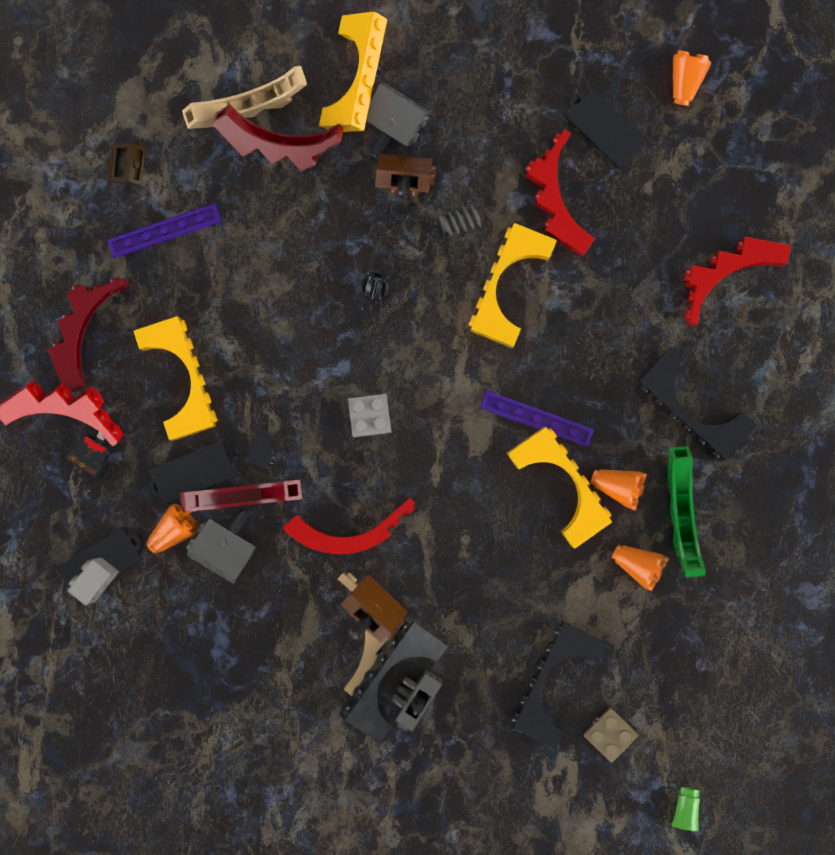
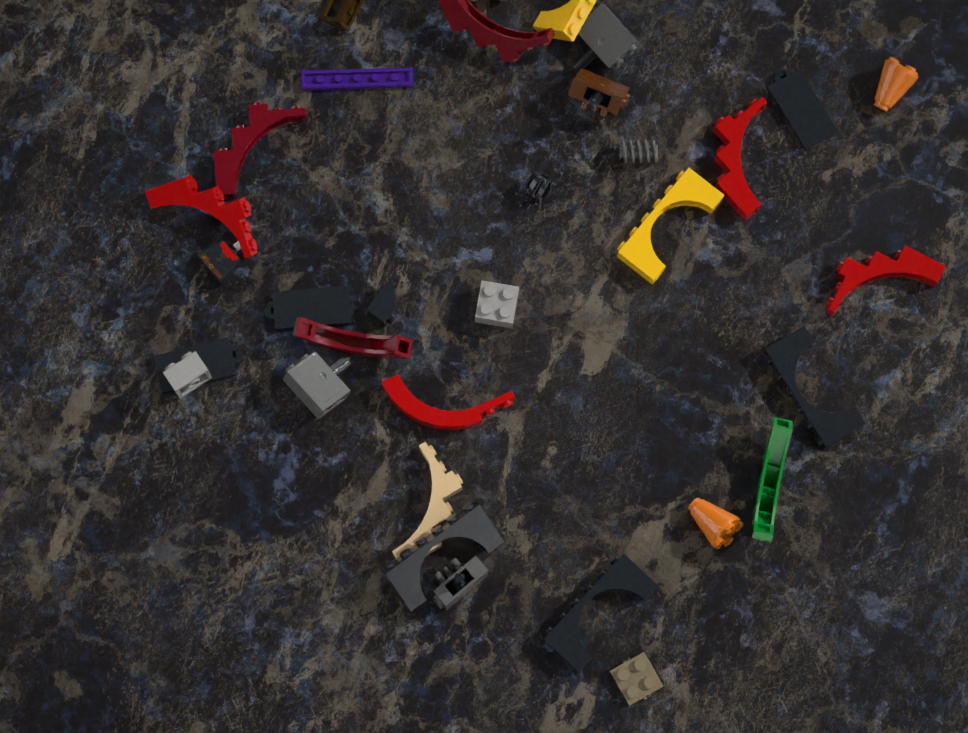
camera: 15 degrees right, 10 degrees down
(172, 529) = (276, 352): orange cone -> none
(196, 413) = (332, 254): yellow arch -> none
(373, 610) = (445, 479): reddish brown piece -> none
(536, 418) = (655, 356): dark purple tile -> none
(589, 514) = (653, 383): yellow arch -> none
(620, 485) = (717, 441): orange cone -> none

